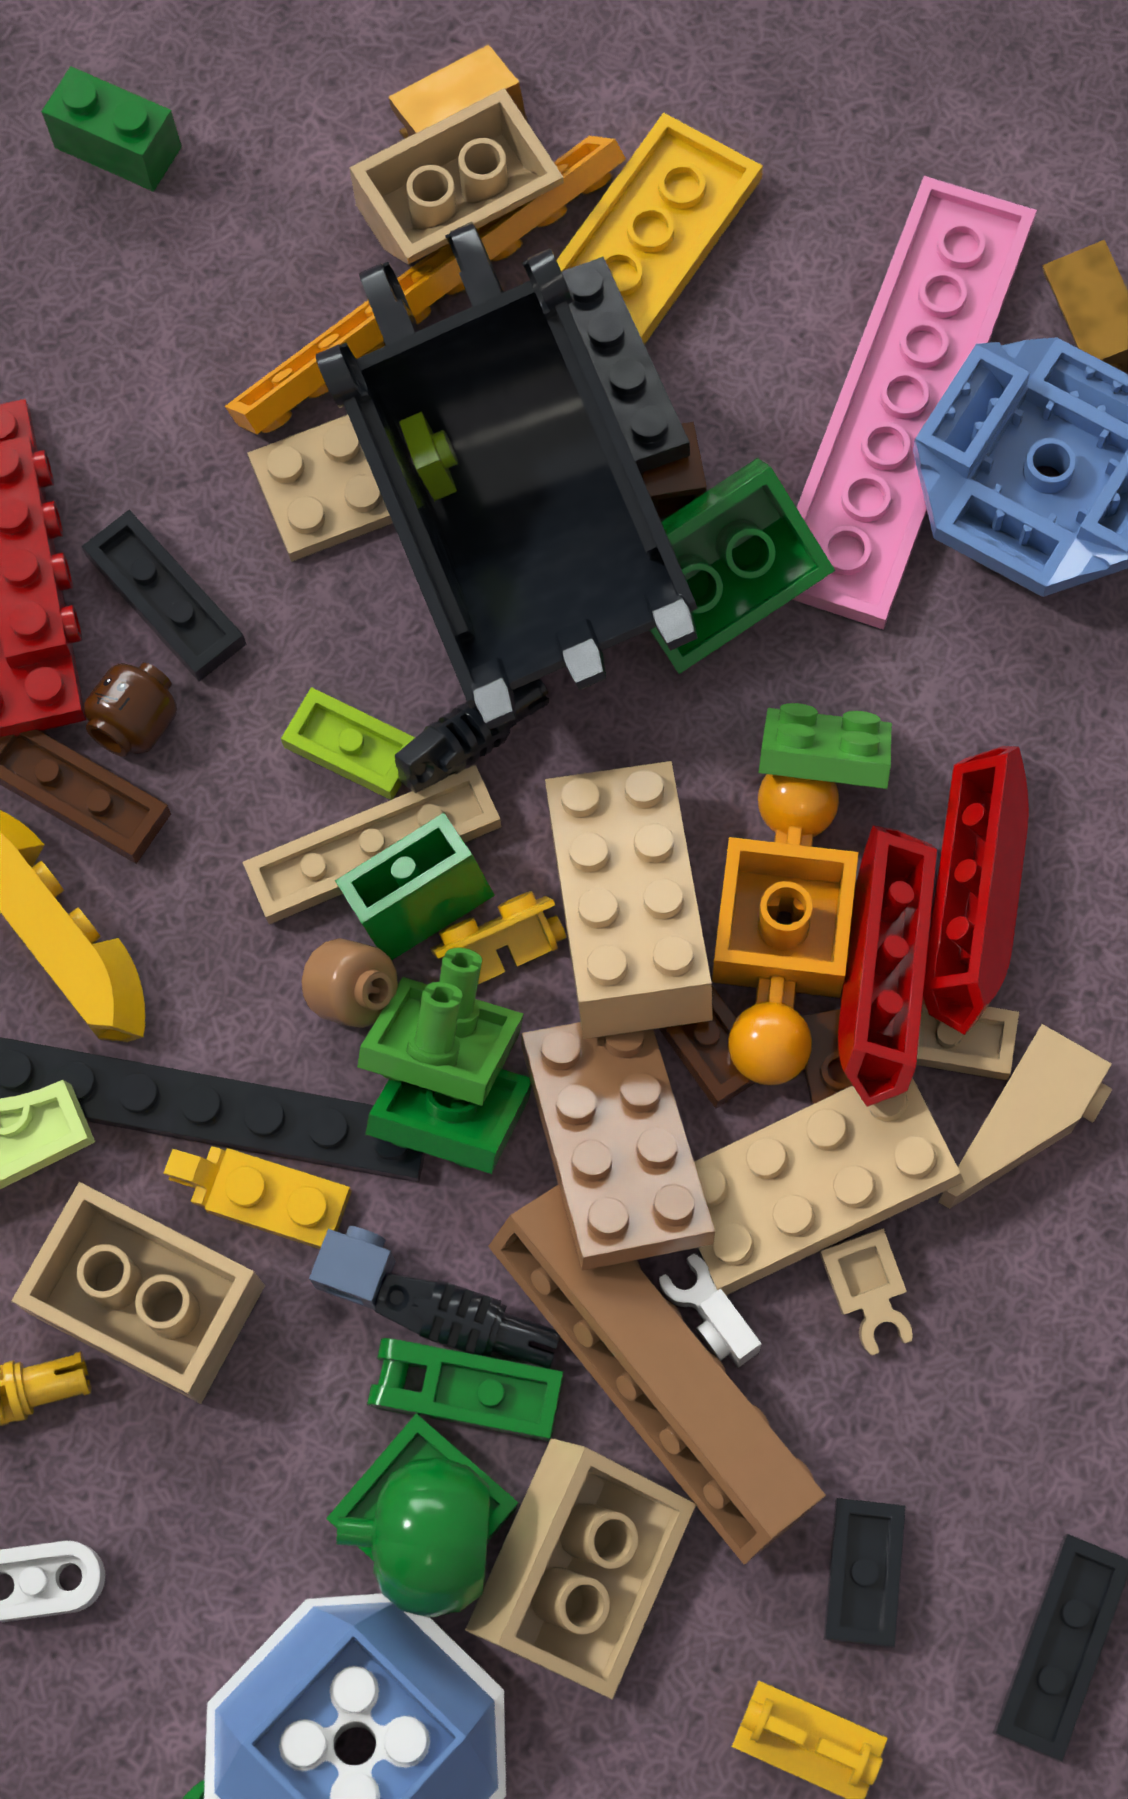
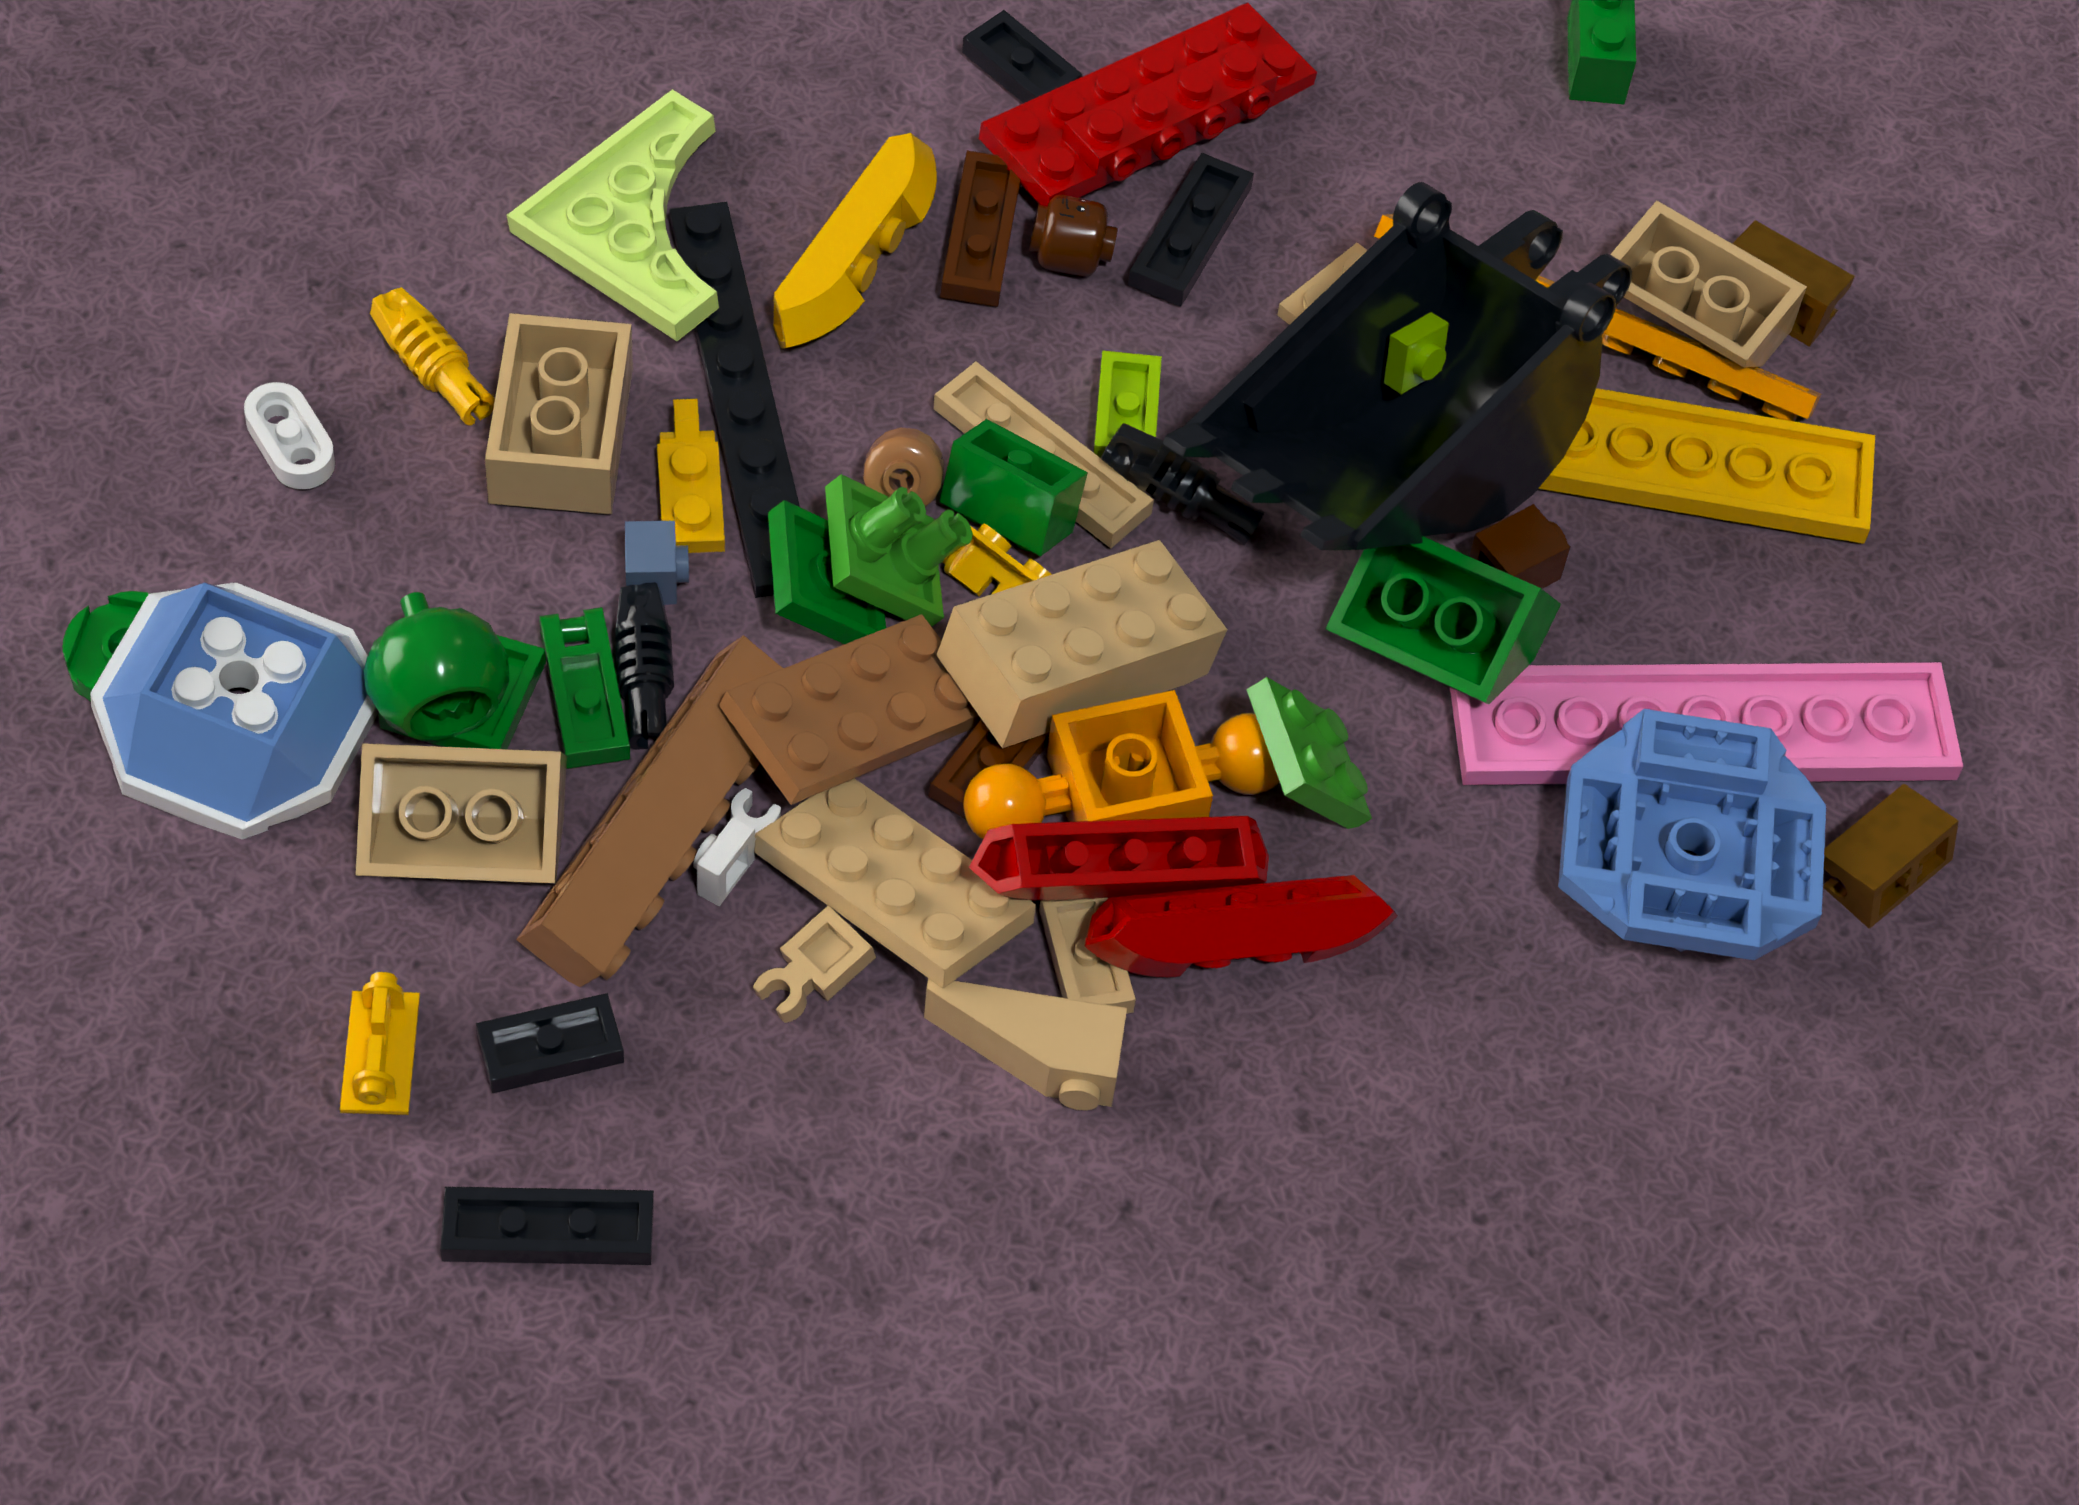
camera: 55 degrees right, 15 degrees down
(625, 367) = (1590, 470): black plate -> none

